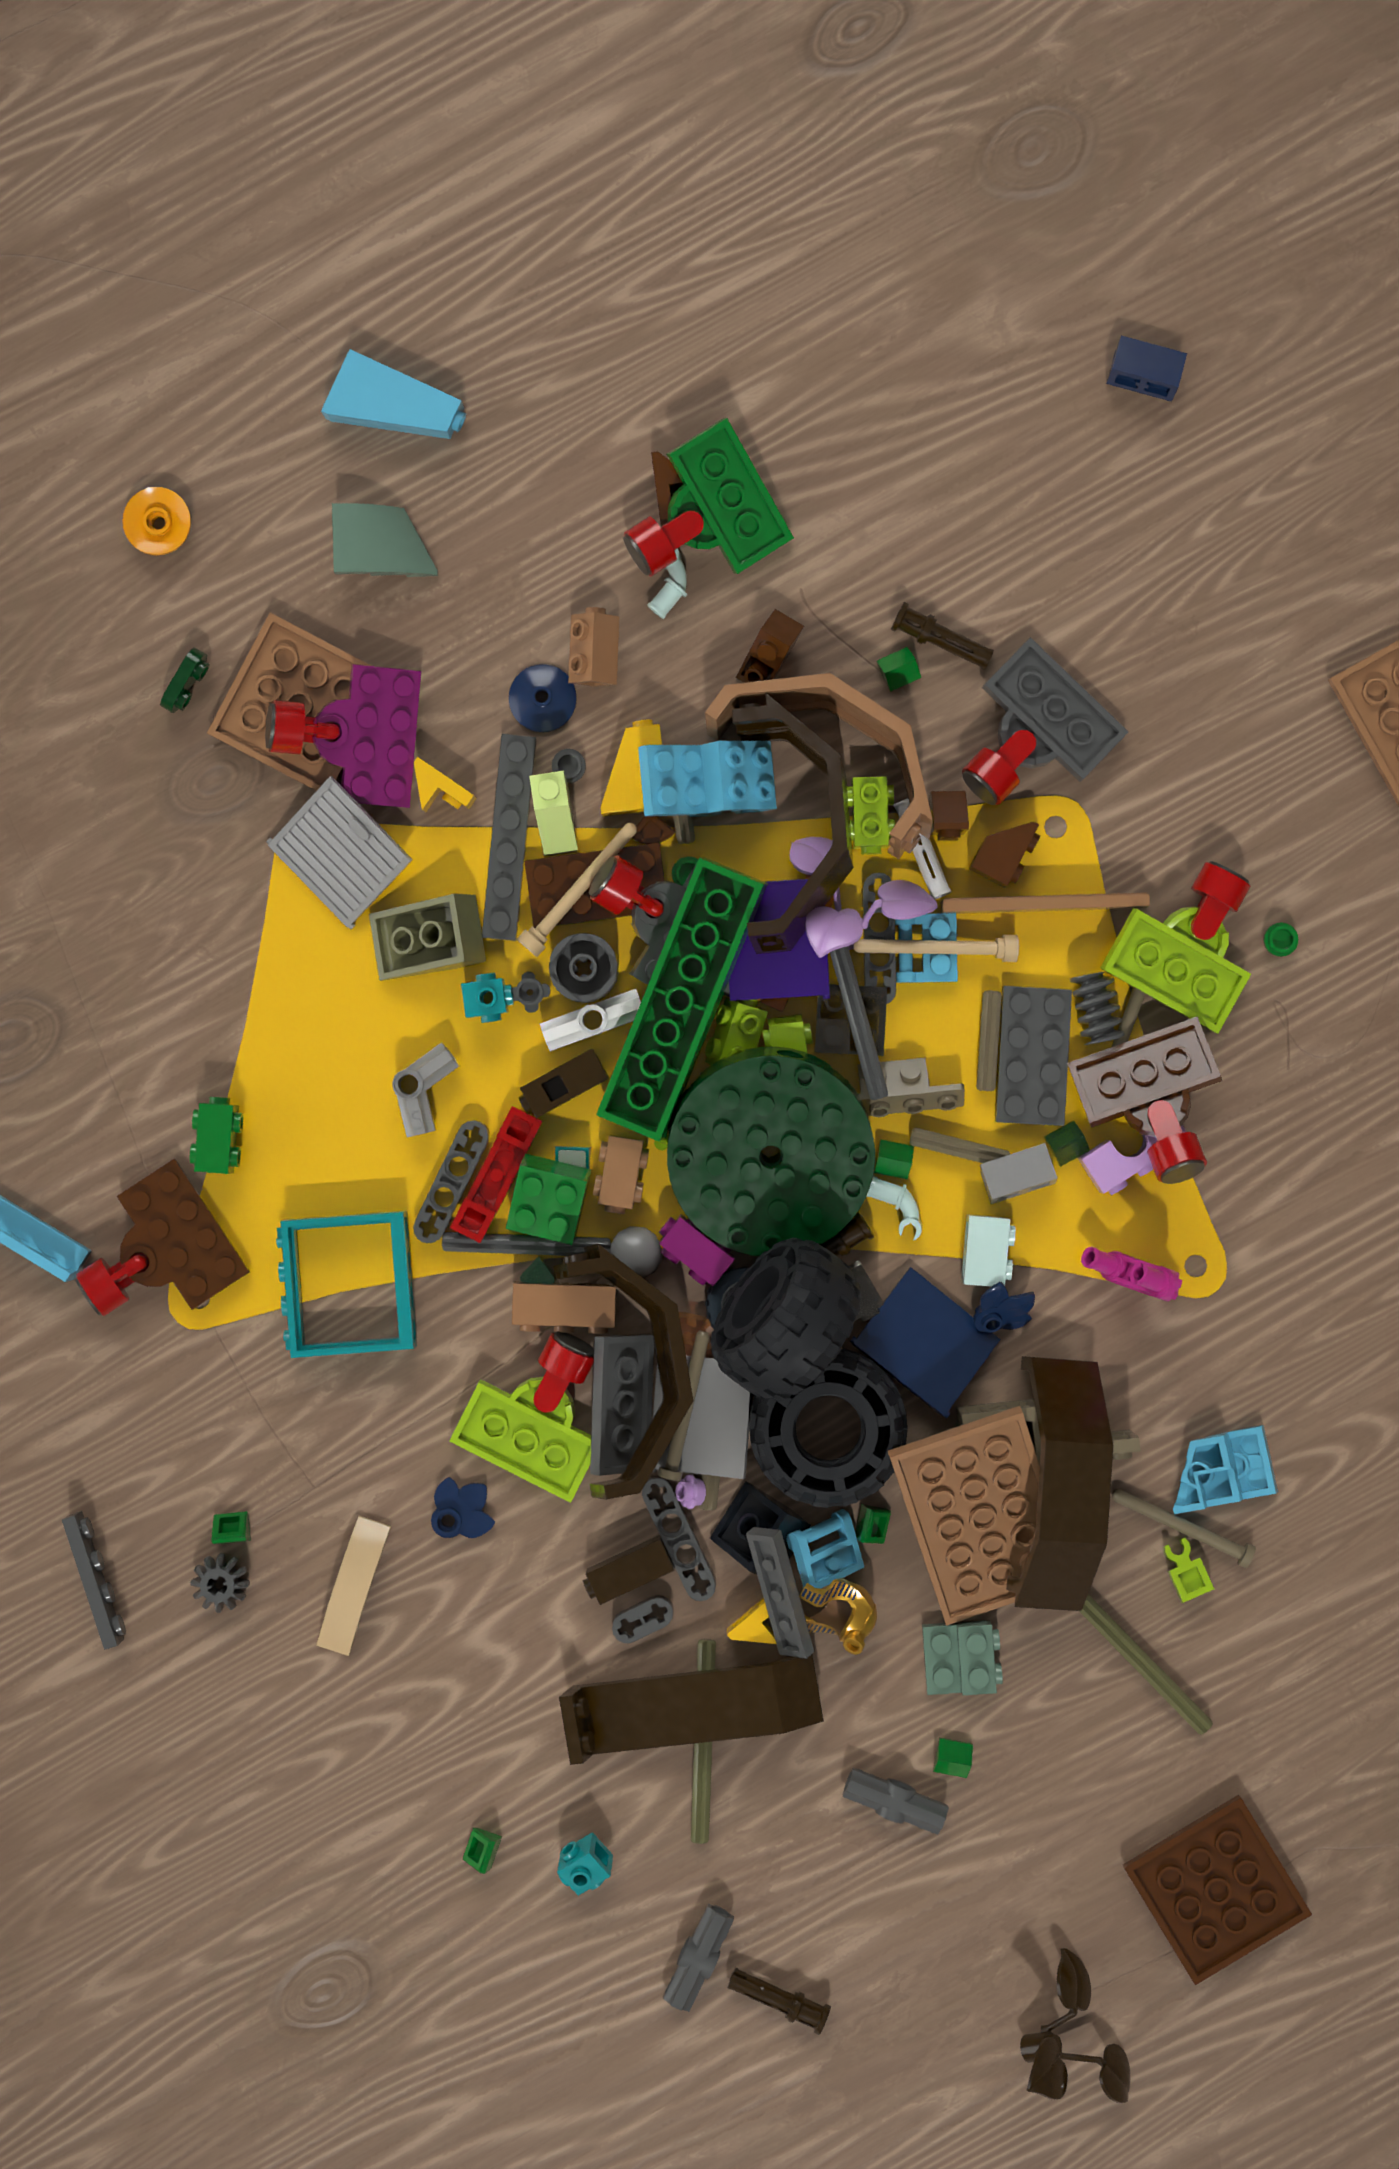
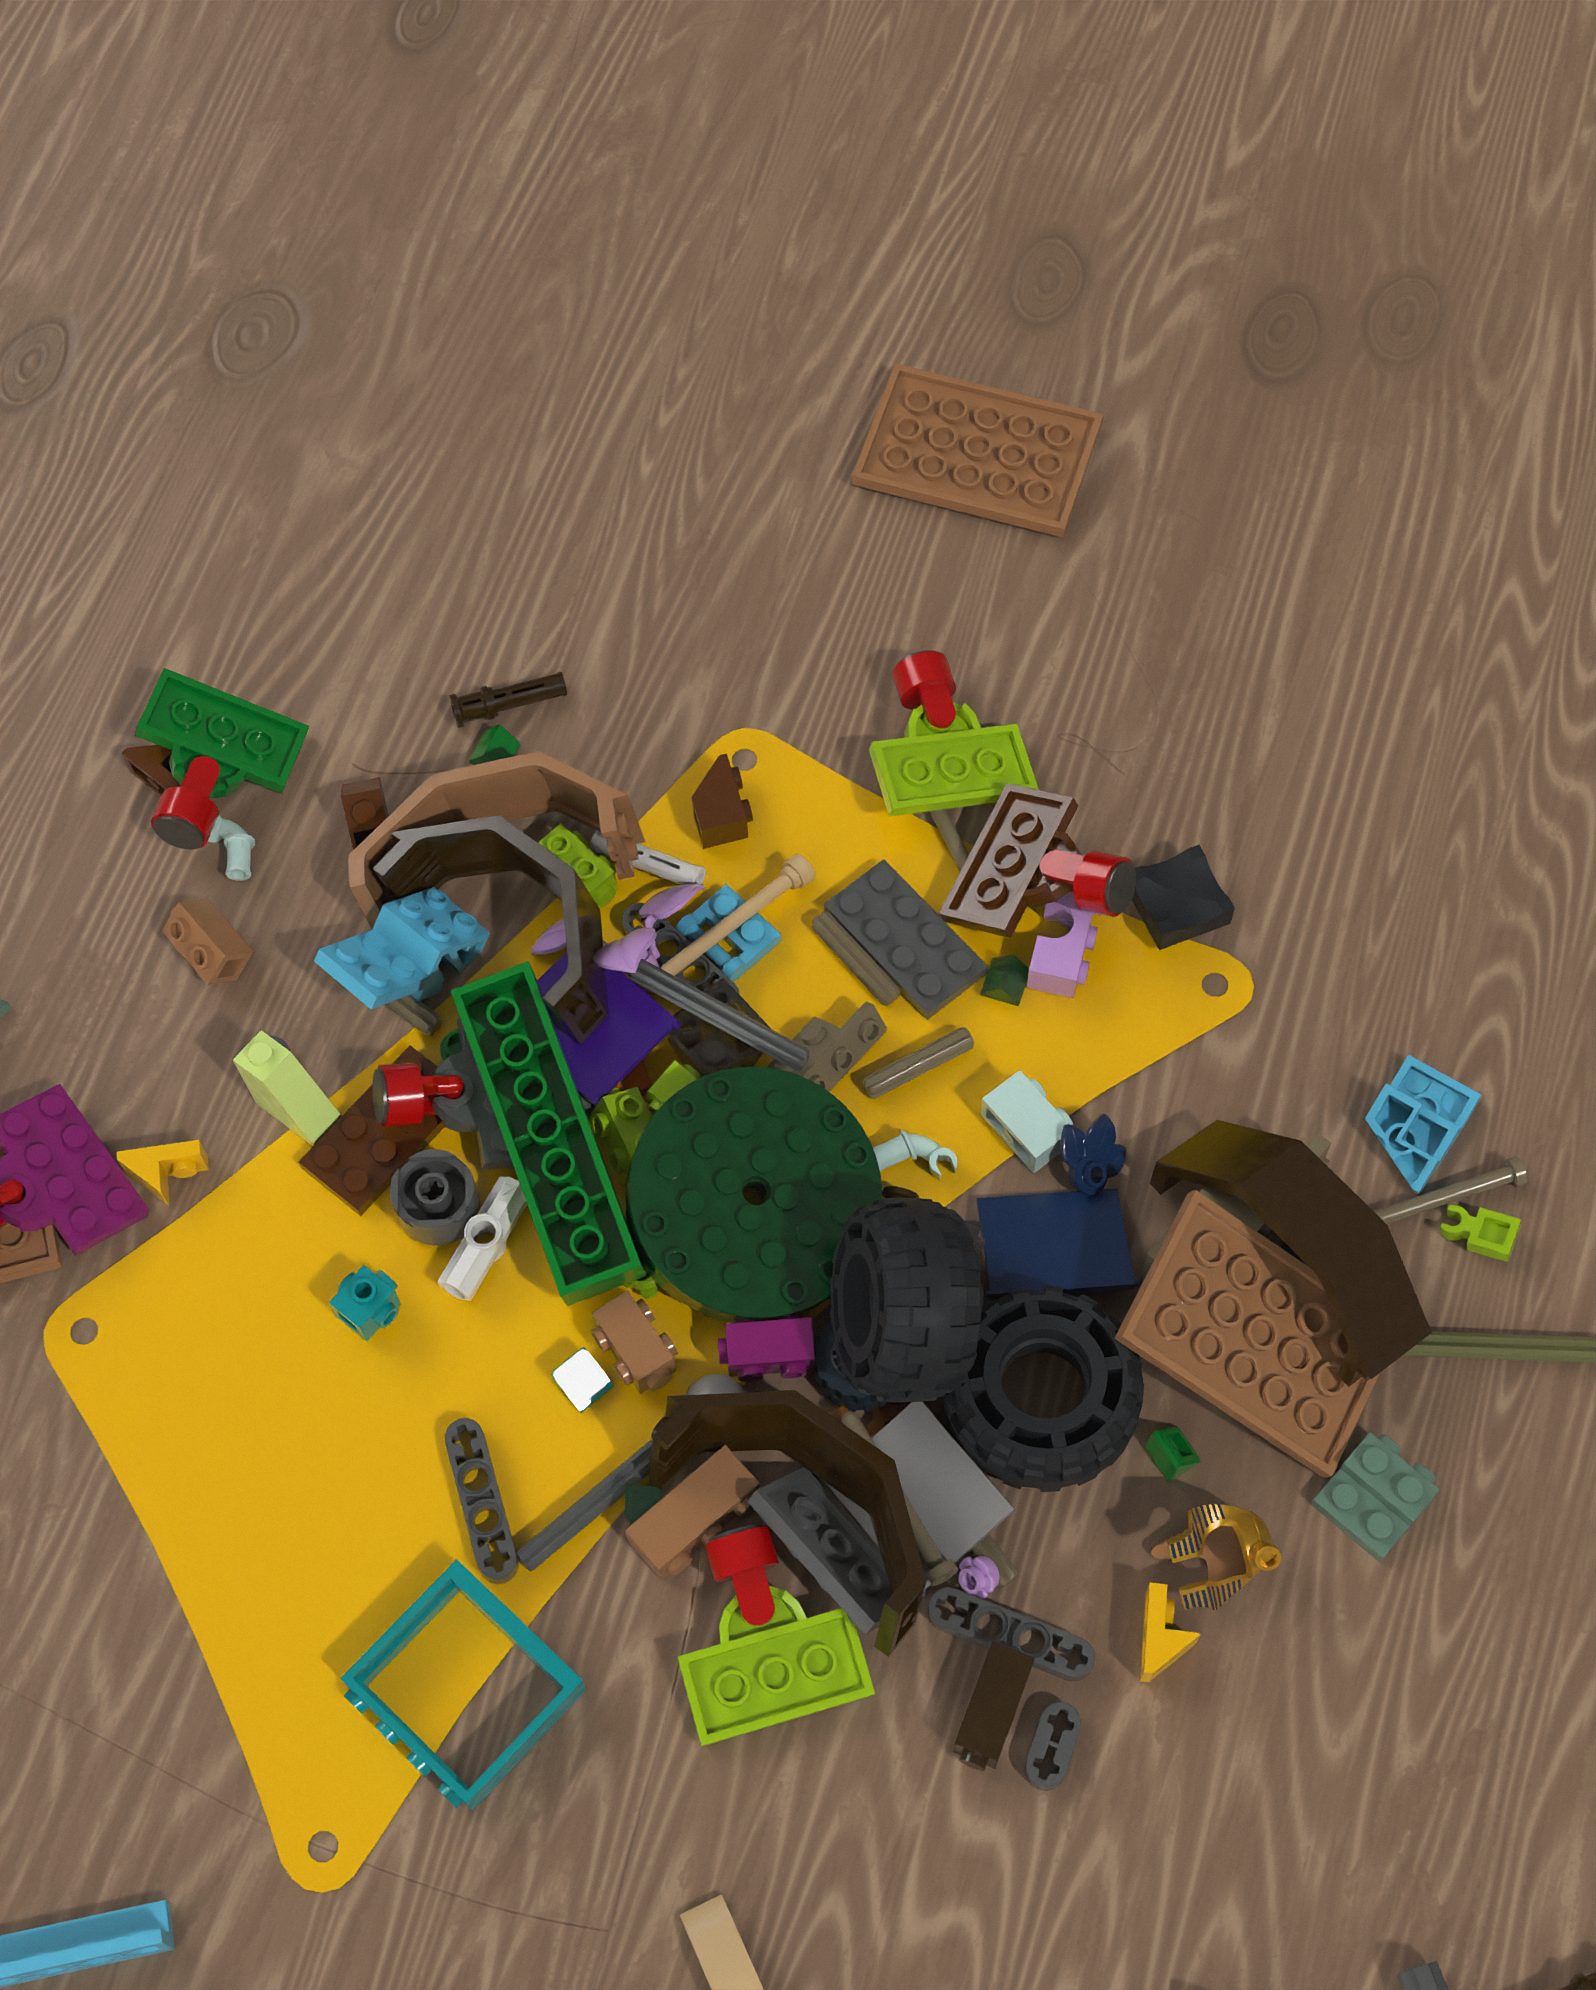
camera: 45 degrees left, 25 degrees down
(169, 1243) = (242, 1812): reddish brown plate -> none
(216, 1136) = (198, 1649): green brick -> none
(339, 852) = (112, 1298): light grey piece -> none
(427, 936) = (262, 1300): olive slope -> none
(428, 1071) = (382, 1457): light grey piece -> none
(465, 1507) = (777, 1803): dark blue plate -> none
(496, 1175) = (518, 1450): red slope -> none
(509, 837) = (268, 1159): dark grey plate -> none
(535, 937) = (366, 1213): tan piece -> none
(539, 992) = (406, 1257): dark grey plate -> none
(548, 1199) = (588, 1423): green brick -> none
(549, 714) = (201, 1039): dark blue dish -> none
(563, 1084) = (508, 1315): dark brown brick -> none
(624, 785) = (338, 1015): yellow slope -> none
(652, 830) = (393, 1042): reddish brown tile -> none
(690, 1707) = (1180, 1778): dark brown panel -> none
(702, 1760) = (1229, 1813): olive axle -> none
(750, 1510) = (1079, 1551): black slope -> none
(780, 1592) = (1151, 1572): dark grey plate -> none
(831, 1560) = (1167, 1512): medium azure plate -> none
(894, 1159) = (877, 1120): green slope -> none
(895, 1801) = (1459, 1687): dark grey piece -> none
(948, 814) = (652, 810): reddish brown slope -> none
(953, 1757) = (1468, 1597): green slope -> none
(1018, 1173) = (989, 1036): light grey hinge -> none
(1043, 721) = (653, 693): dark grey plate -> none
(1045, 903) = (790, 815): medium nougat tile -> none
(1097, 1007) = (917, 852): dark grey piece -> none
(1133, 1273) = (1187, 1012): dark pink connector -> none
(1146, 368) = (488, 395): dark blue hinge -> none
(1229, 1194) = (1180, 898): none -> black brick
(1280, 939) = (1013, 684): green plate -> none

